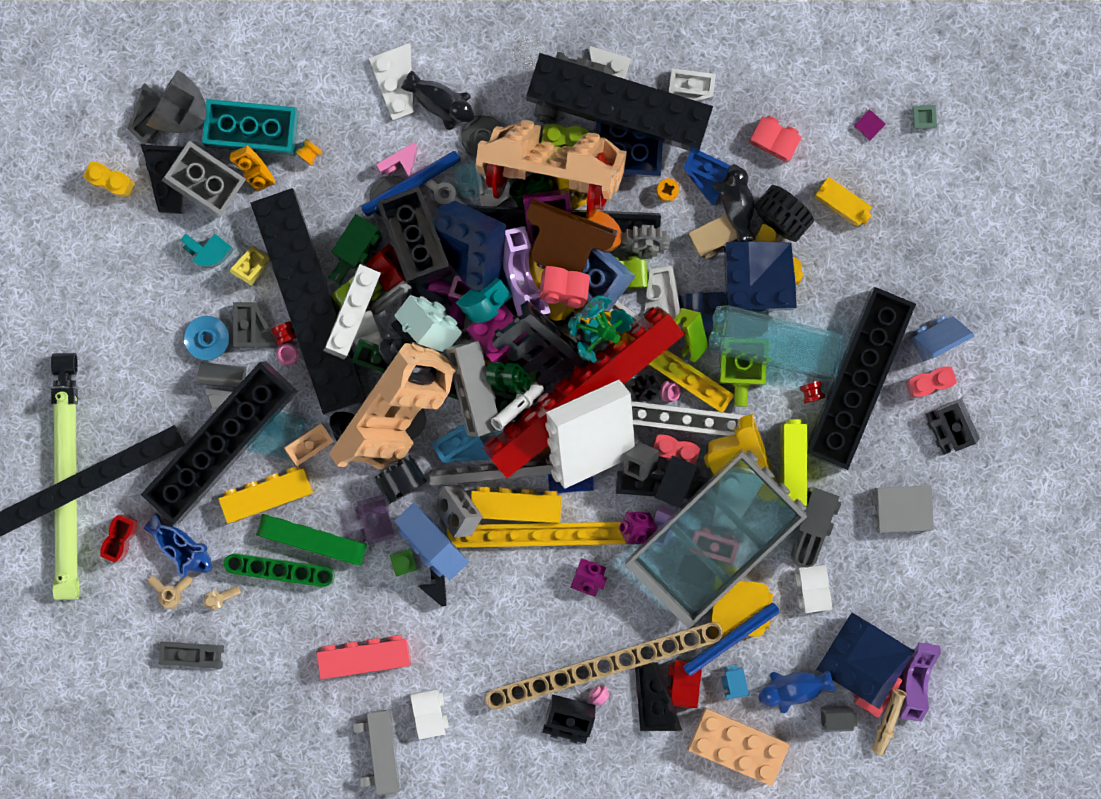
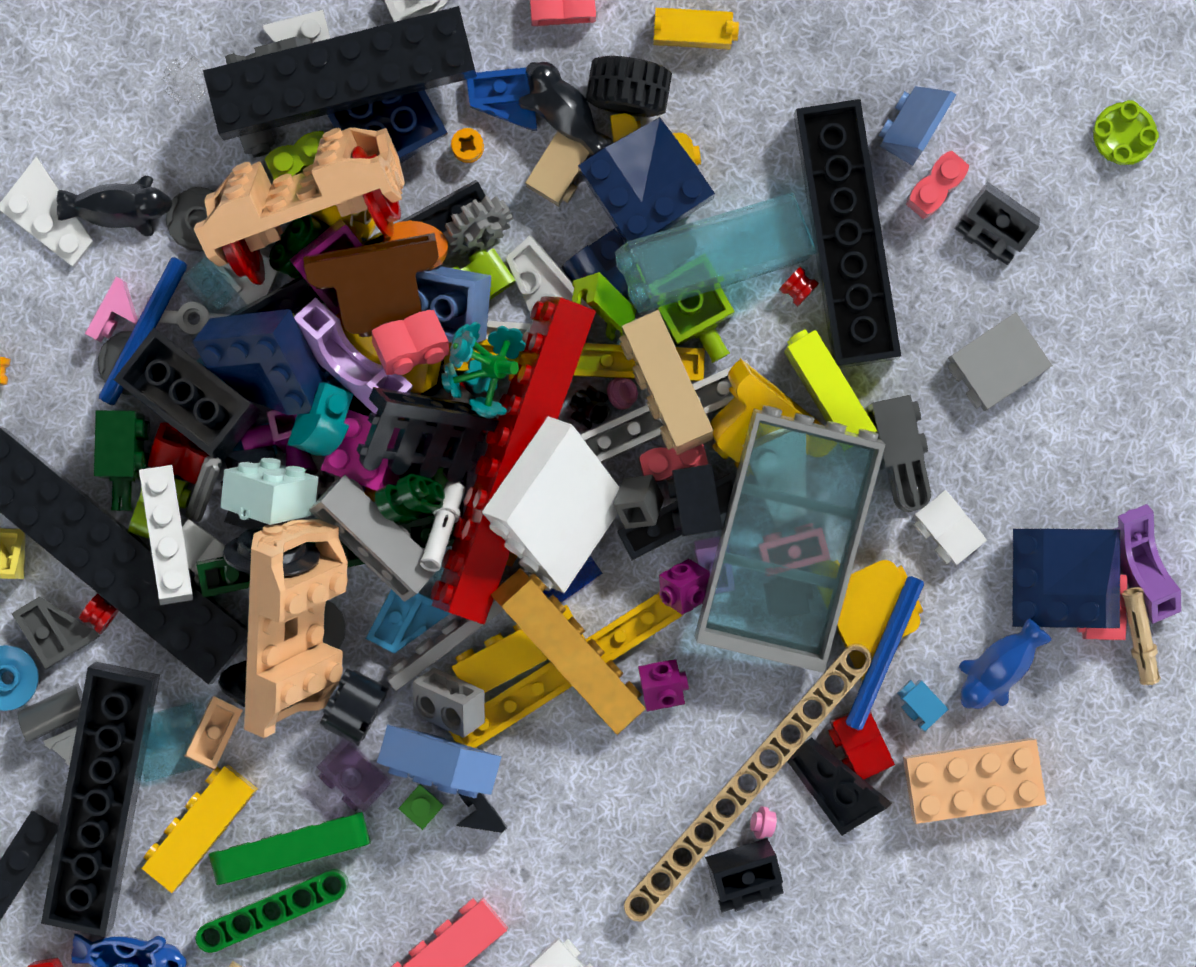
camera: 25 degrees left, 0 degrees up
(287, 354) = (119, 636): bright pink plate -> none
(546, 523) = (568, 651): none -> pearl gold brick
(700, 402) = (668, 384): none -> tan brick
(838, 719) = (1077, 671): dark grey brick -> none
(1060, 419) = (1125, 133): none -> lime dish

